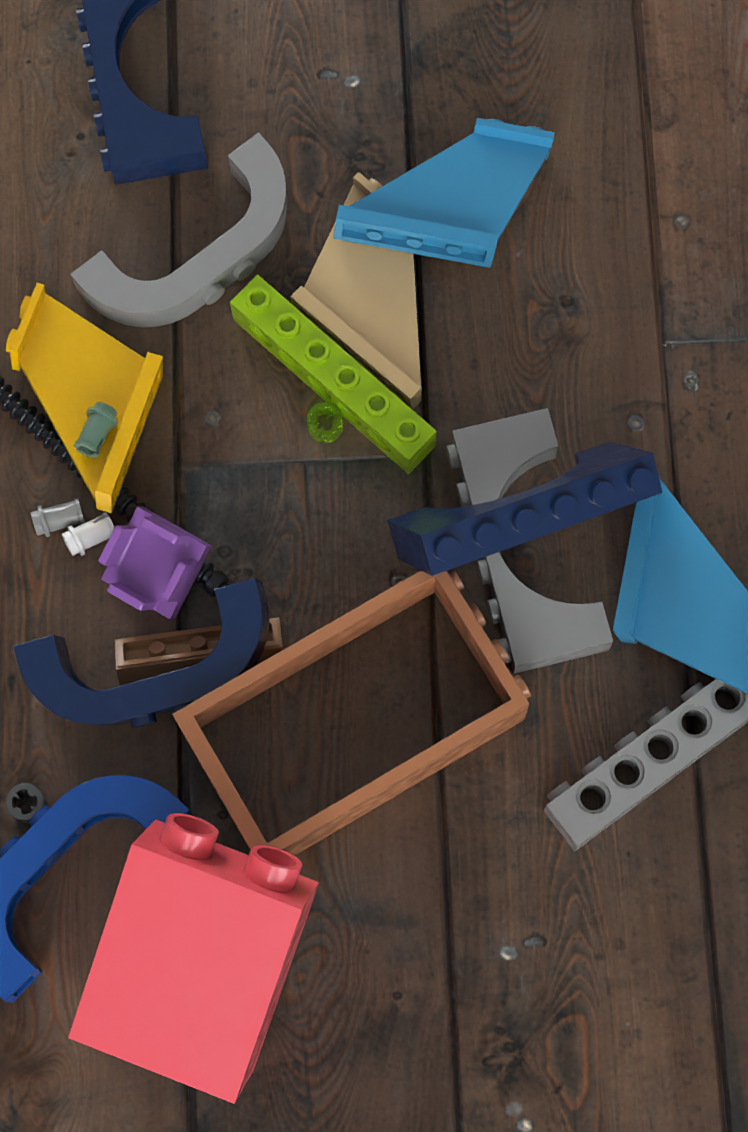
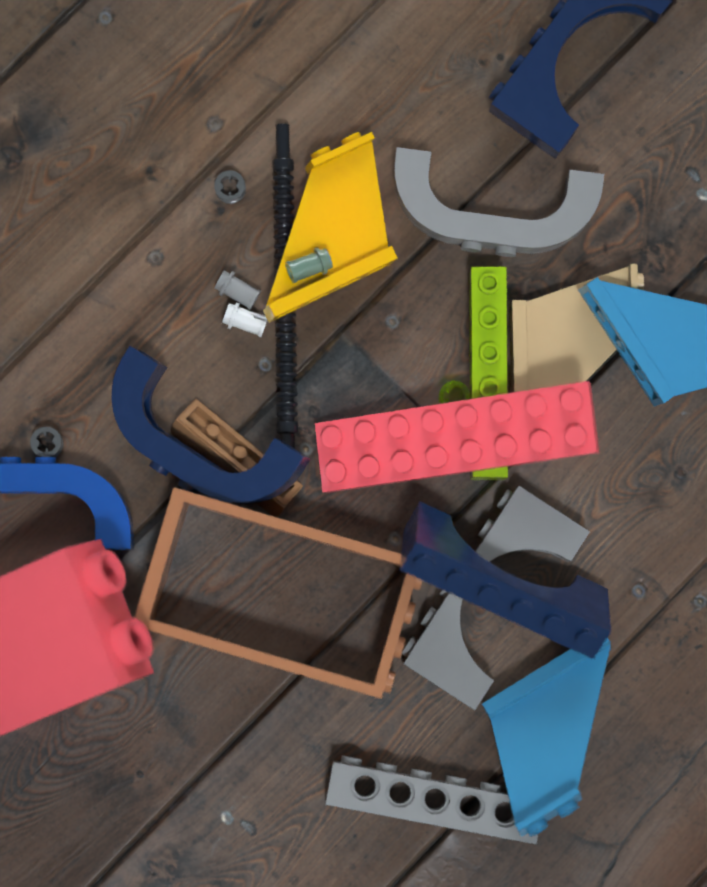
camera: 40 degrees right, 10 degrees up
(152, 563) = (261, 378): medium lavender panel -> none
(361, 442) = (457, 437): none -> coral plate

